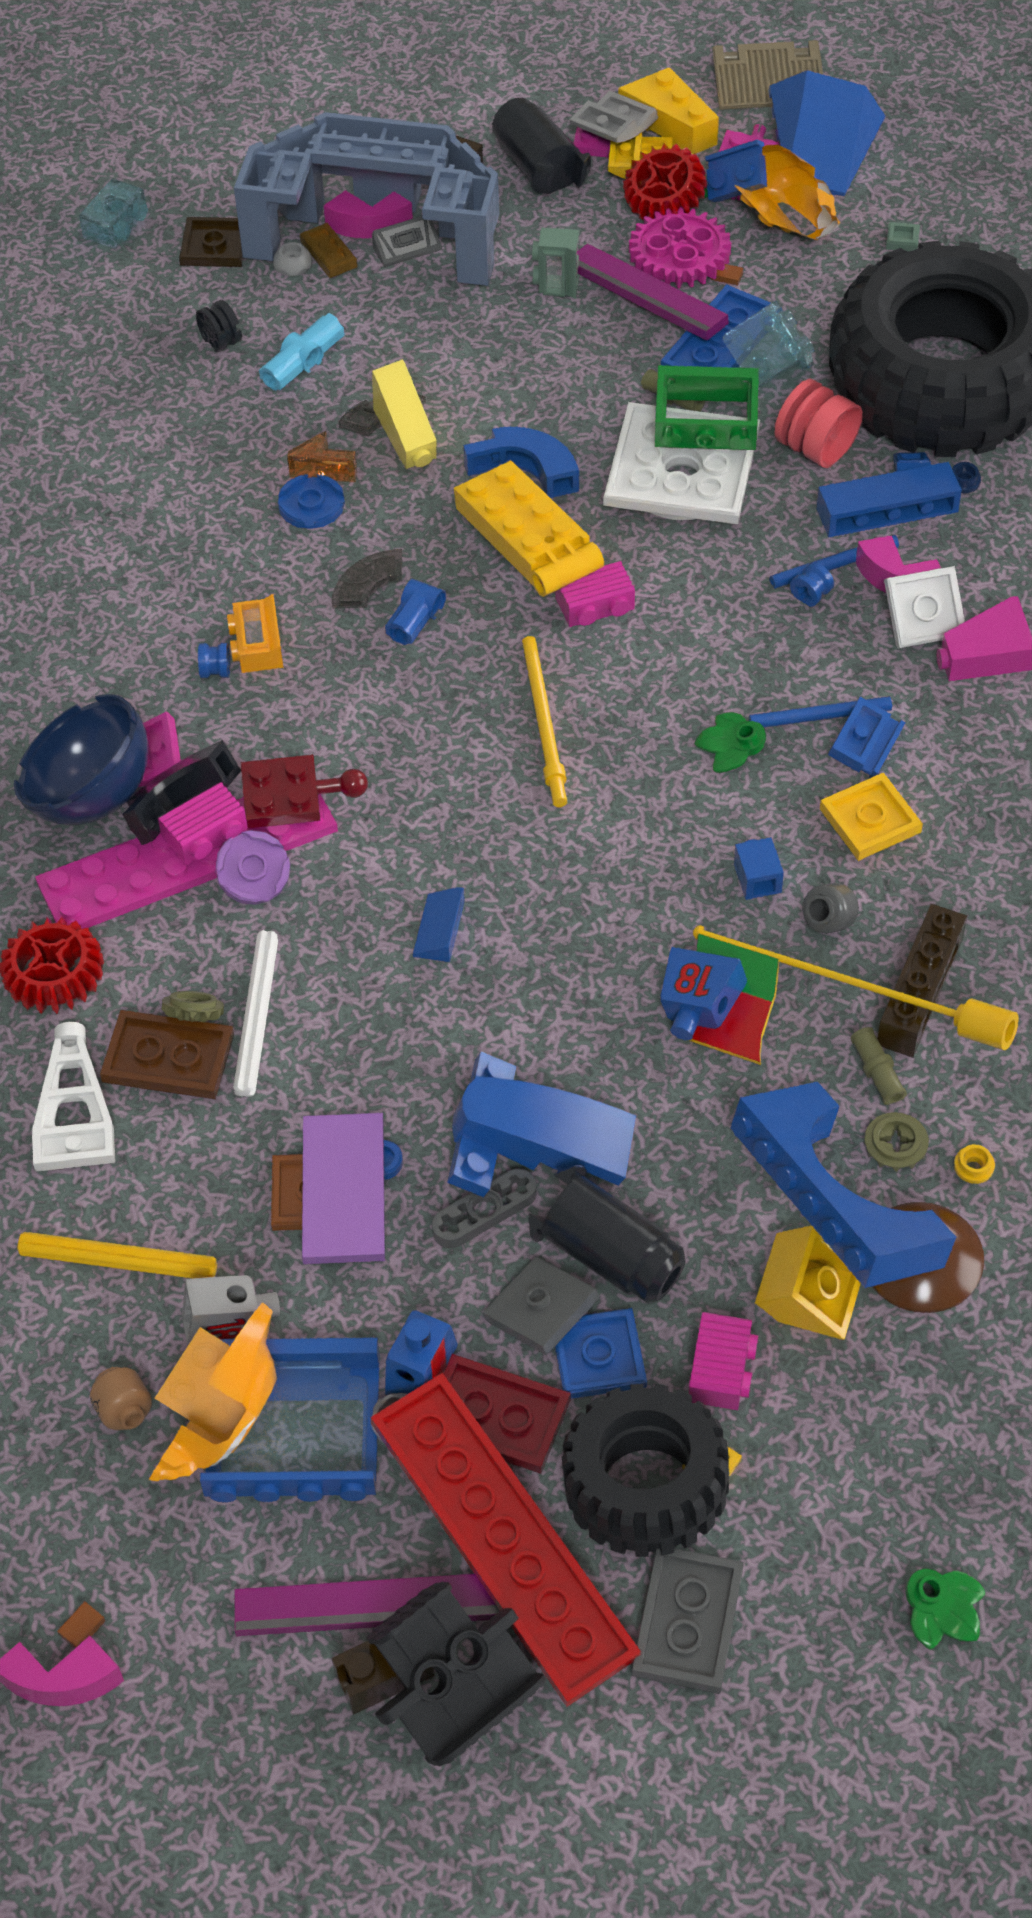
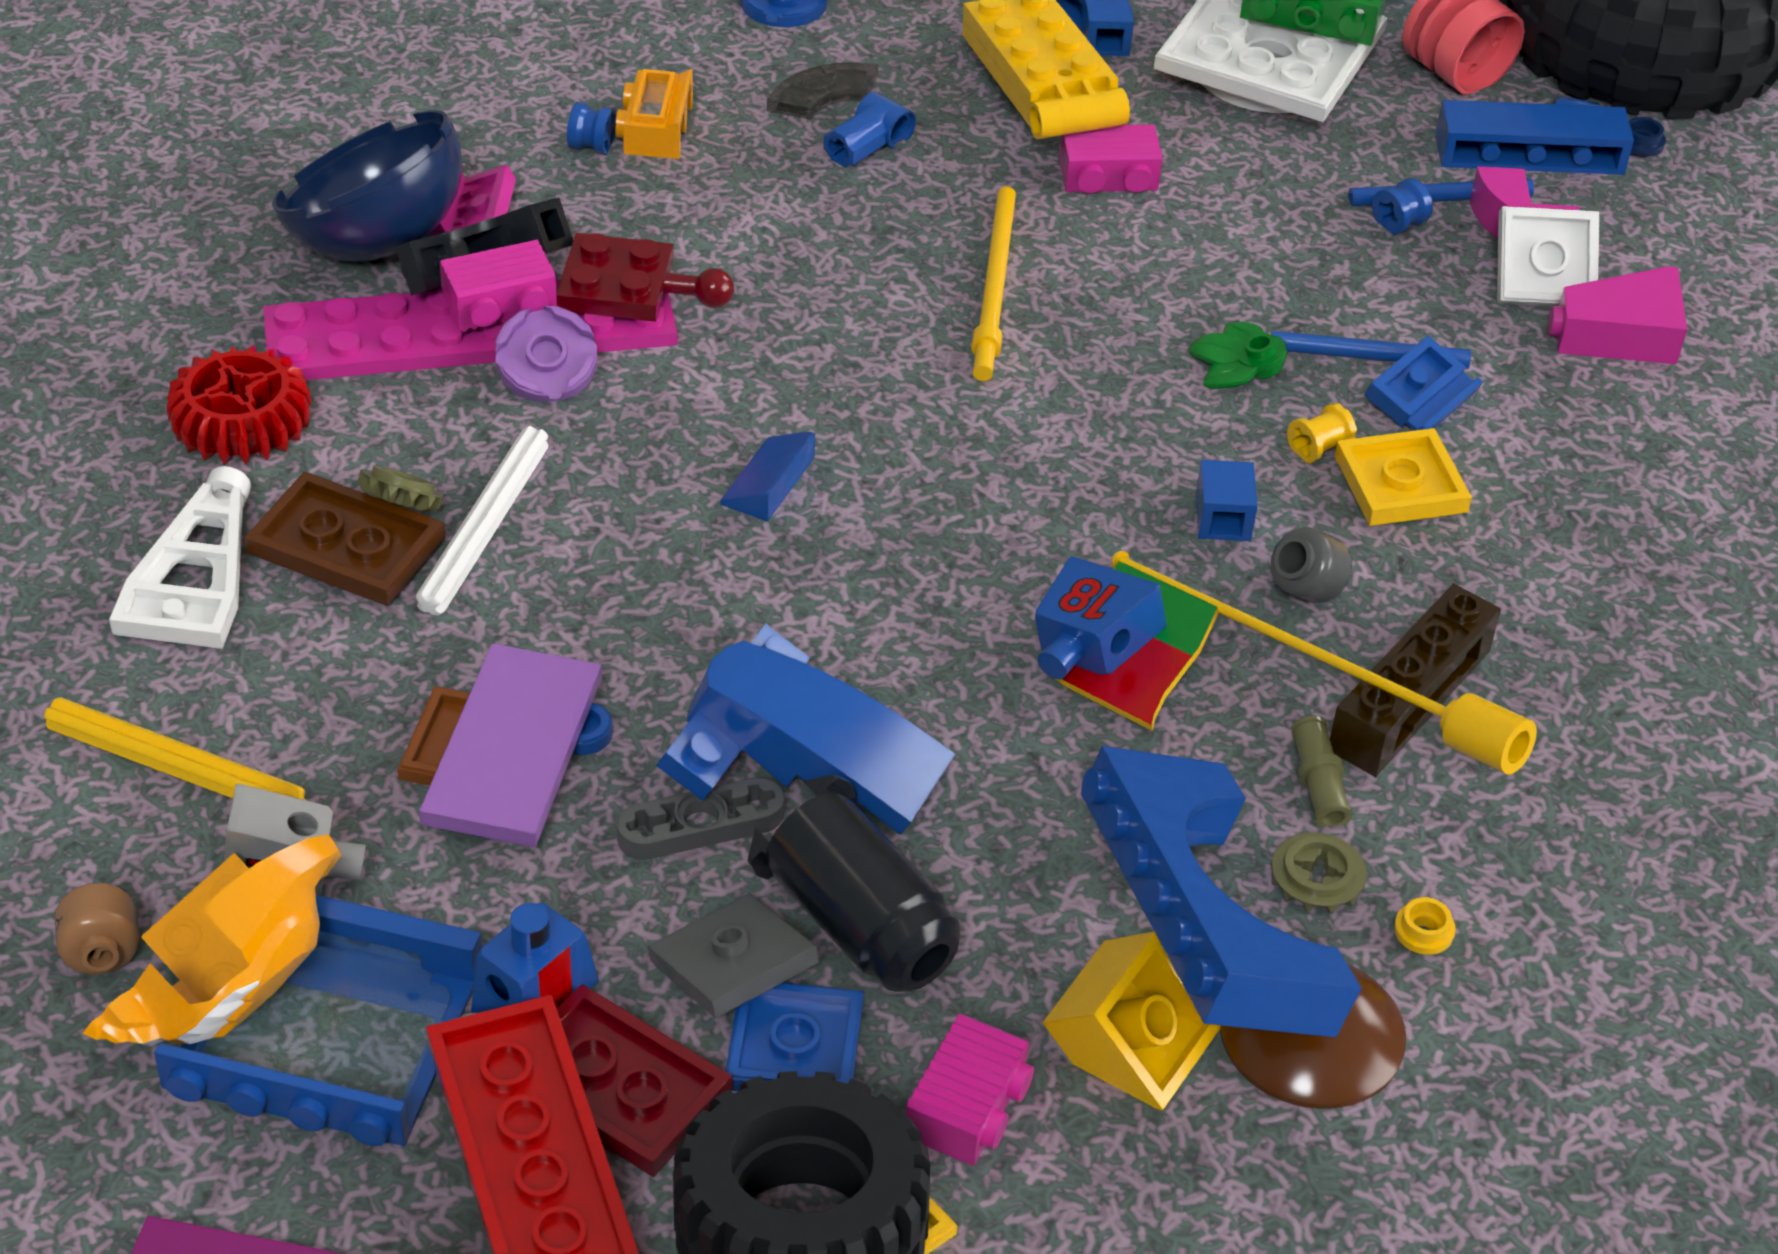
camera: 10 degrees right, 10 degrees down
(807, 794) = (1320, 433): none -> yellow bush

